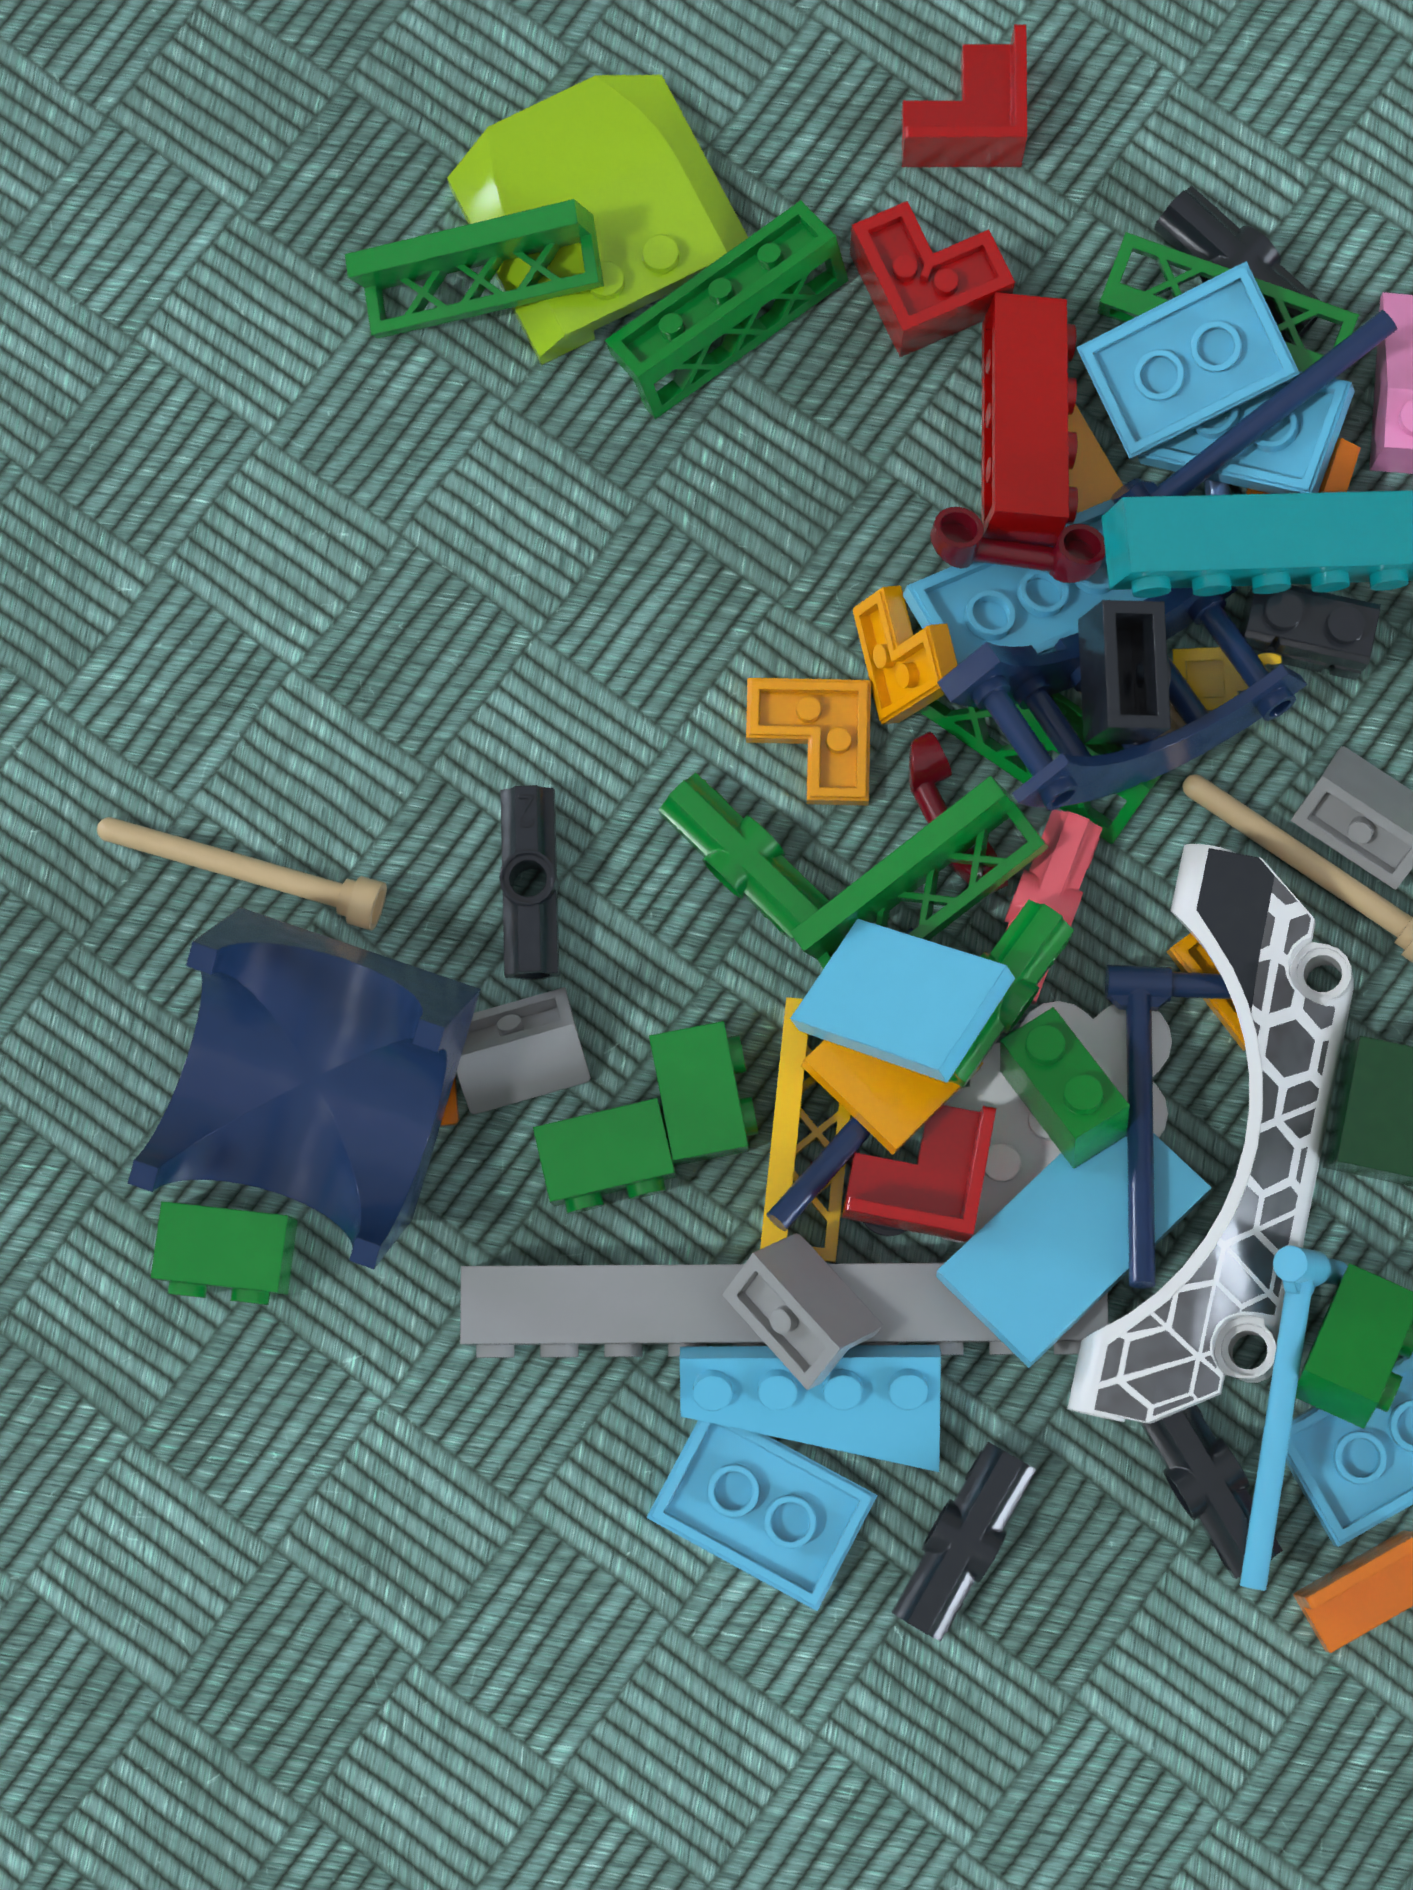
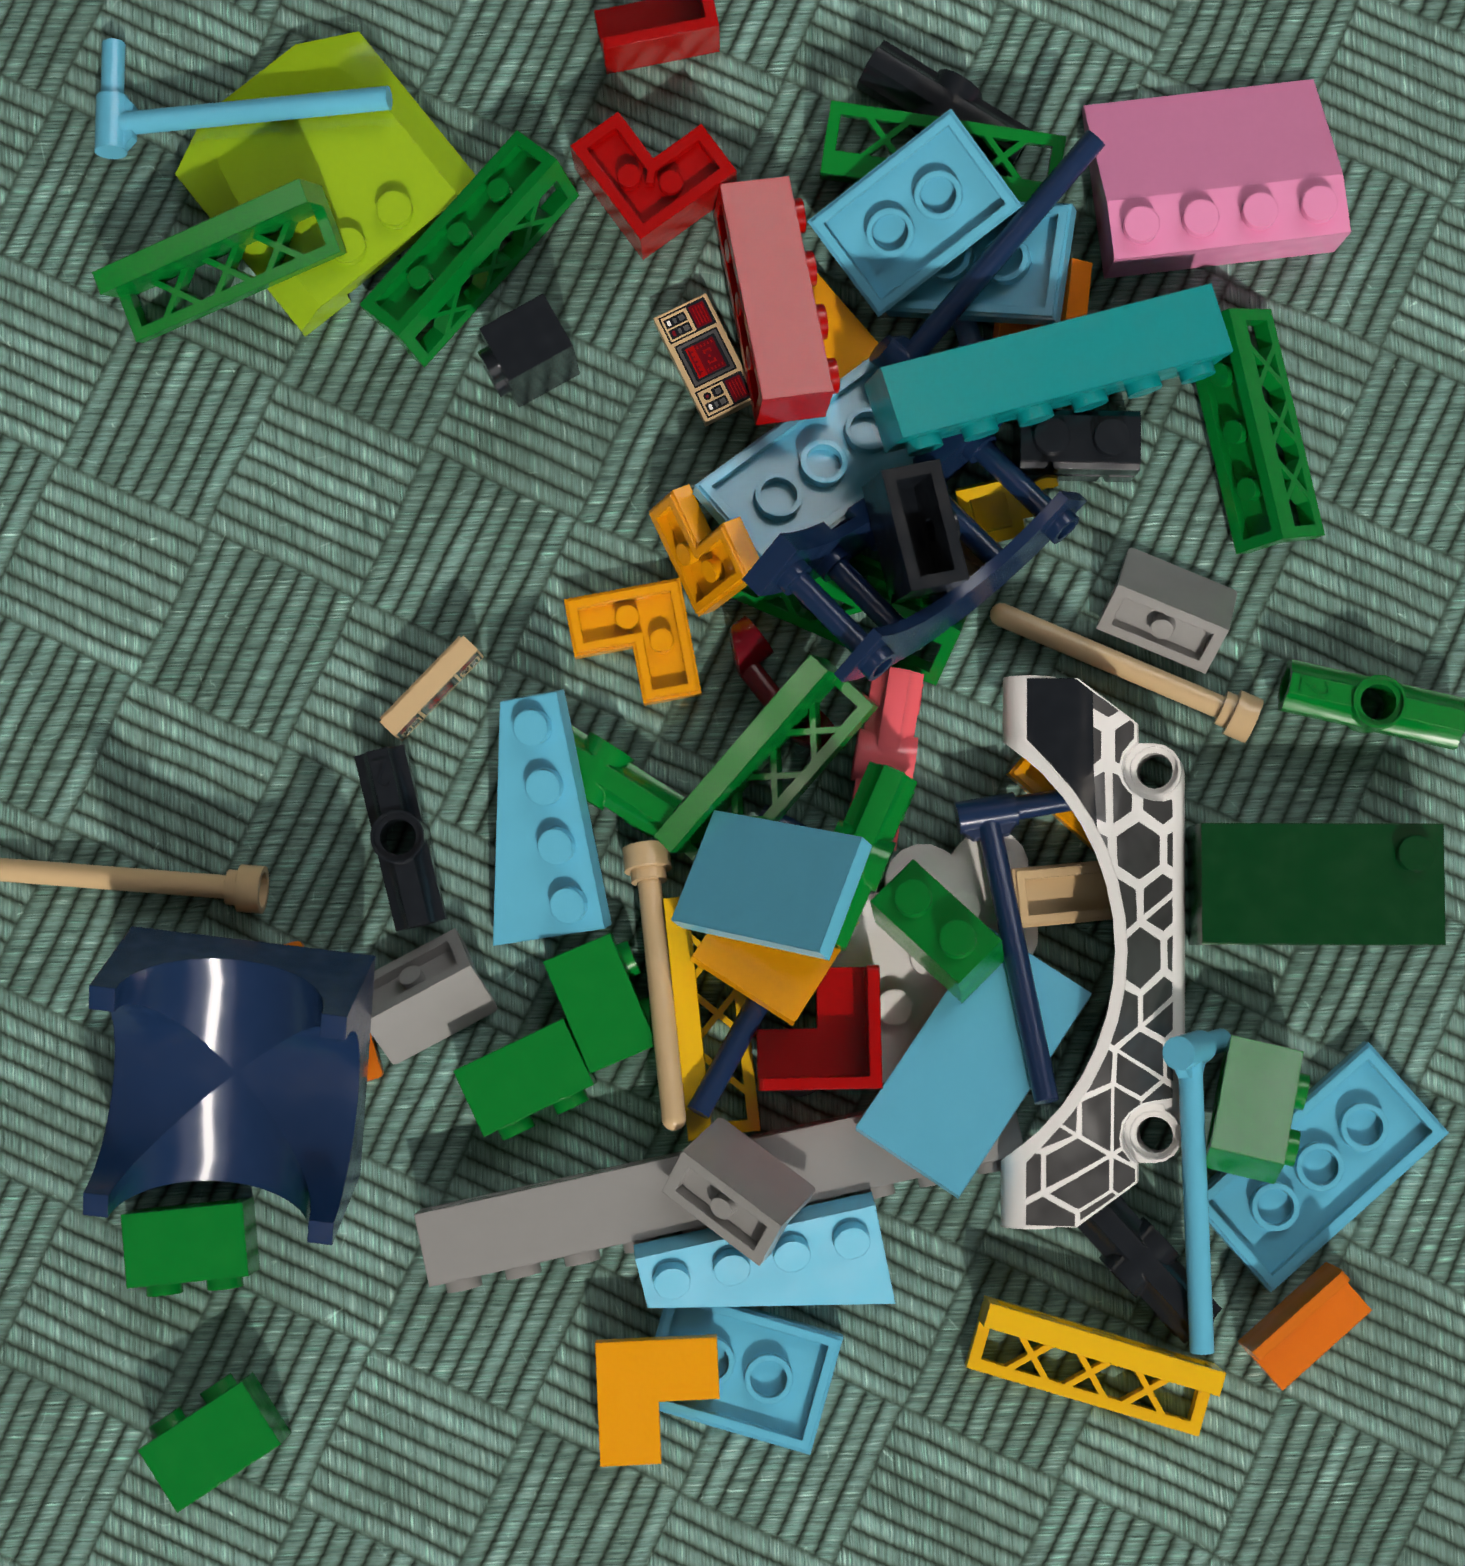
camera: 20 degrees left, 5 degrees up
(203, 1457) = (214, 1441): none -> green brick
(404, 116) = (120, 120): none -> medium azure bar
(594, 737) = (431, 688): none -> tan tile
(651, 1489) = (639, 1375): none -> light orange tile
(676, 914) = (544, 832): none -> medium azure wing
(765, 420) = (527, 352): none -> black brick
(776, 963) = (648, 866): none -> tan piece
(941, 461) = (704, 359): none -> tile
(960, 541) = (735, 432): dark red bar -> none
(963, 1541) = (930, 1363): black piece -> none
(1147, 1562) = (1101, 1346): none -> yellow fence
(1200, 1083) = (1061, 894): none -> tan tile

